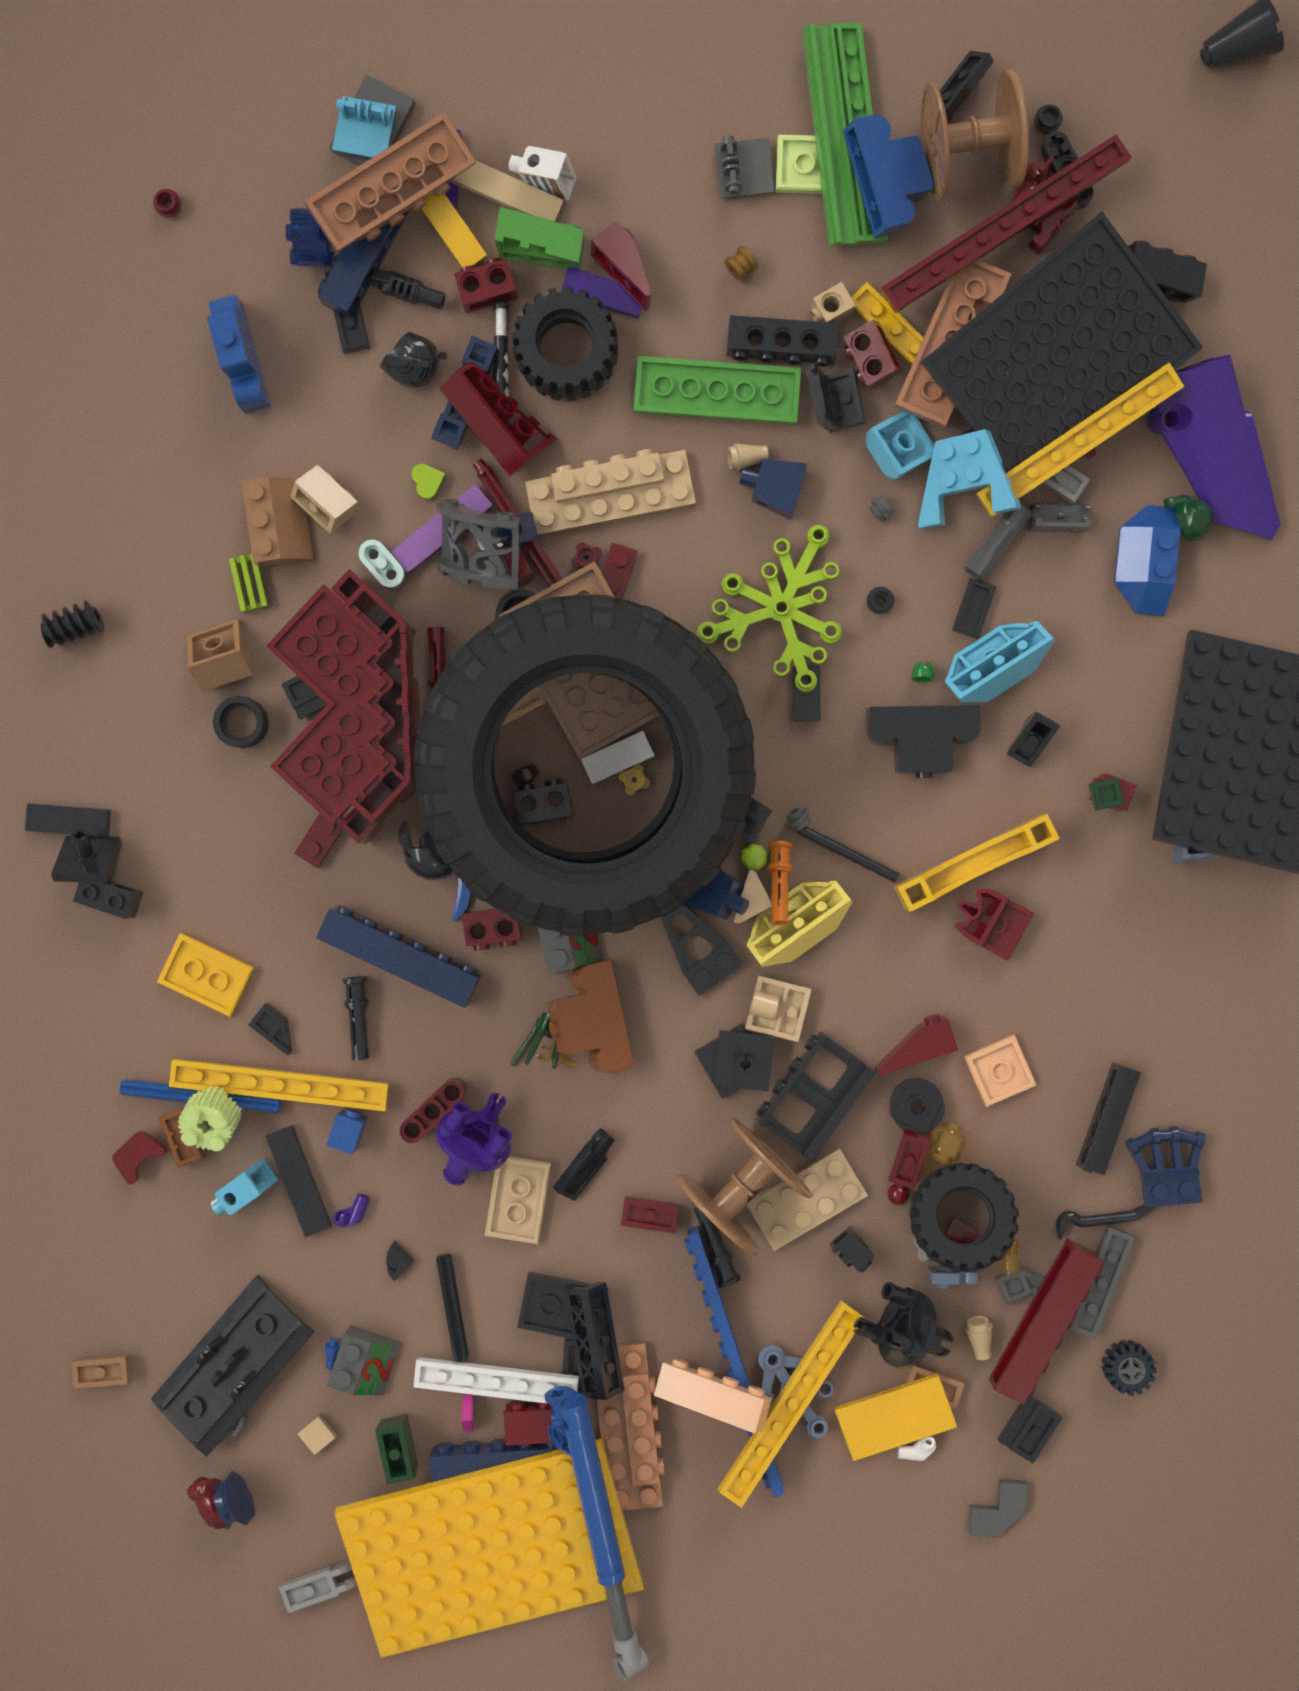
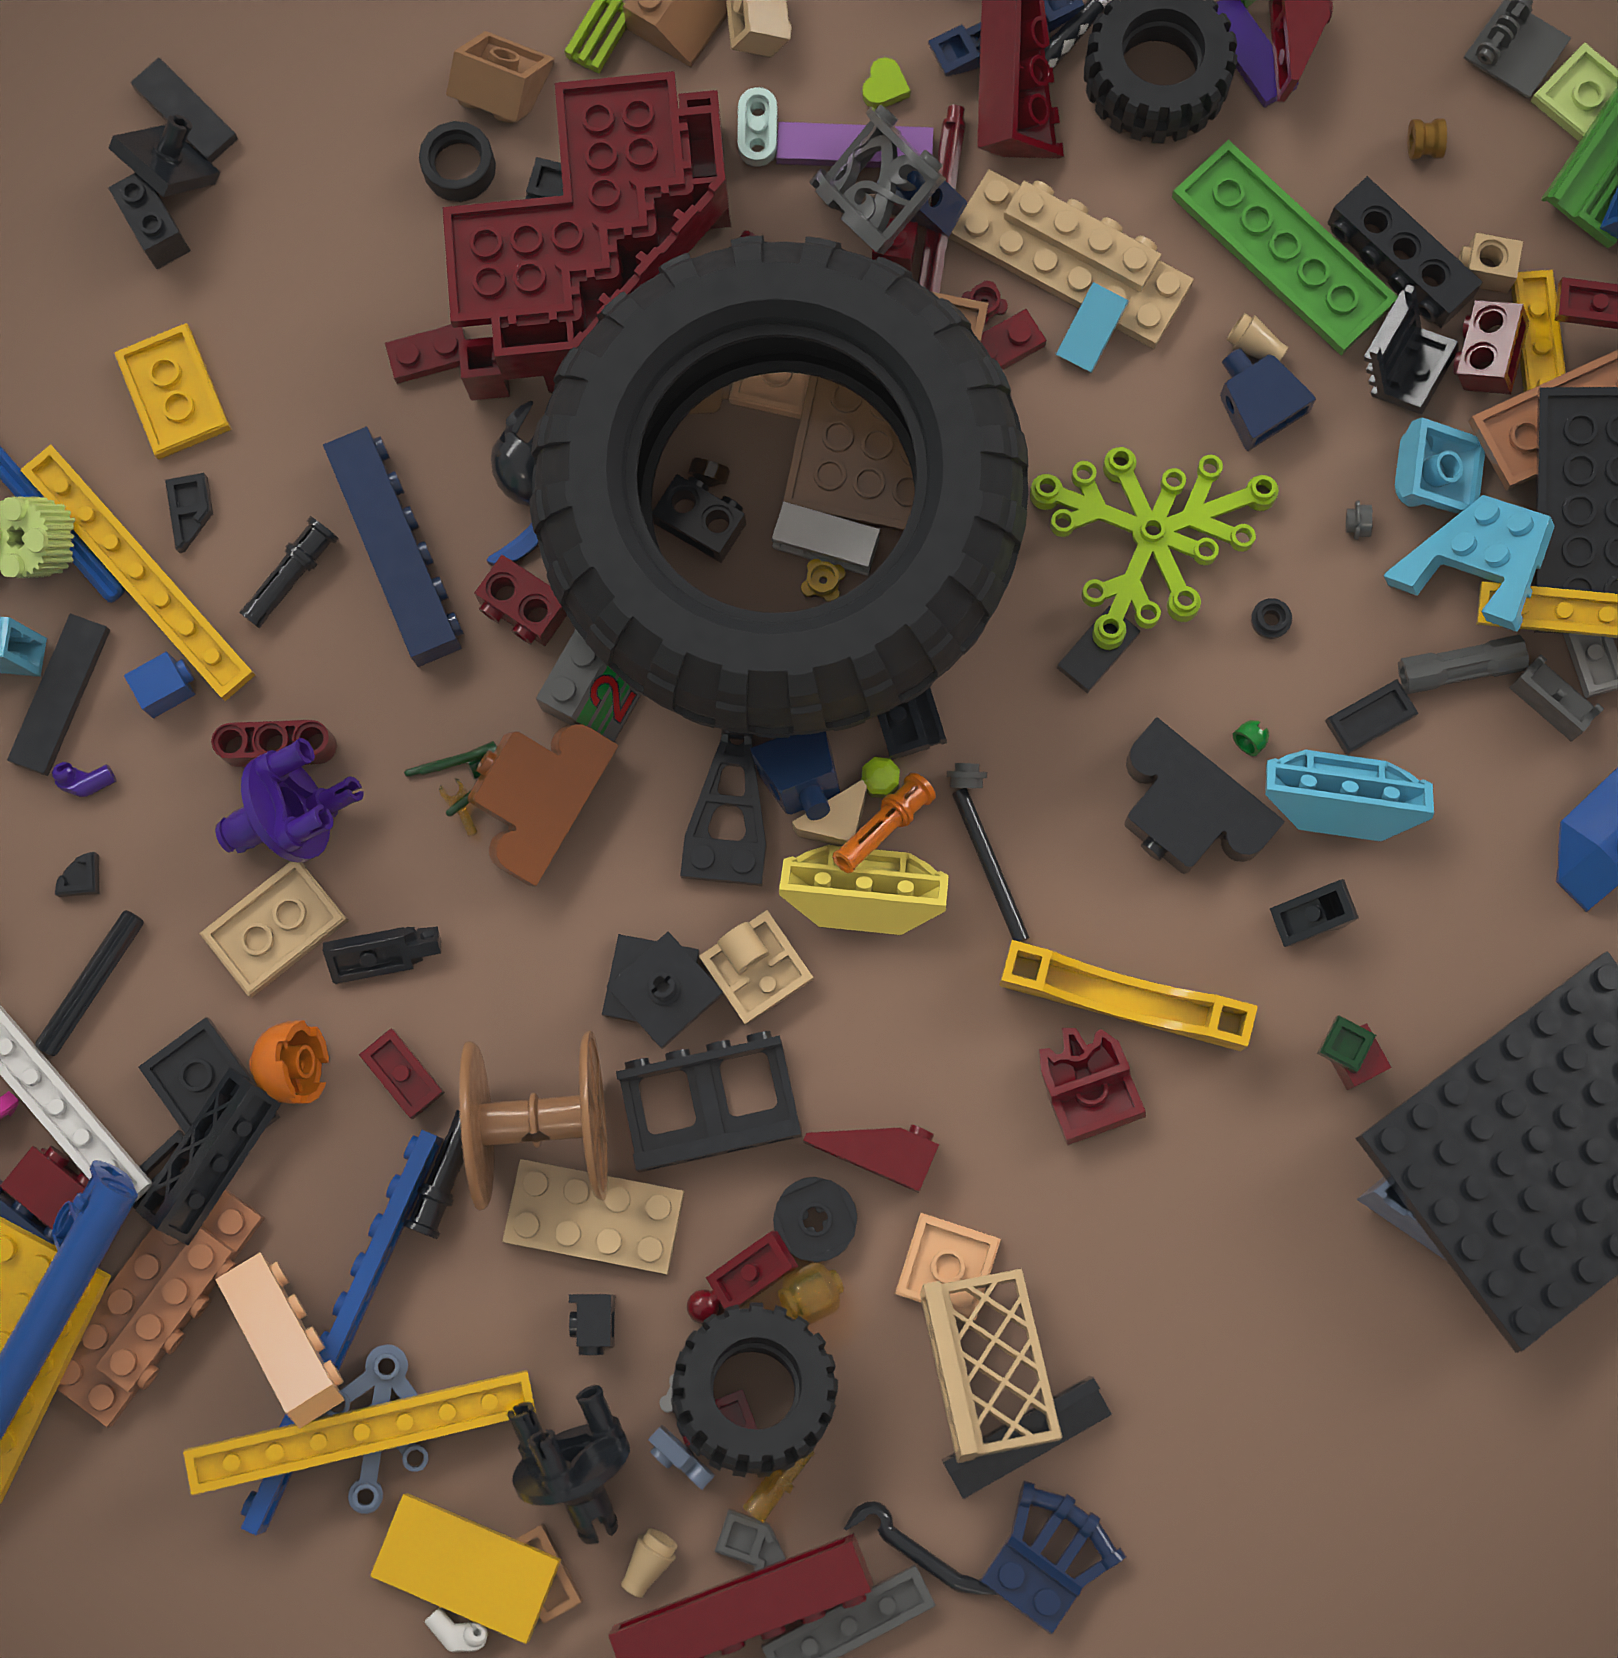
camera: 45 degrees right, 10 degrees down
(591, 1261) = (289, 1062): none -> orange cylinder
(656, 523) = (1092, 327): none -> medium azure tile
(1052, 1124) = (952, 1369): none -> tan fence

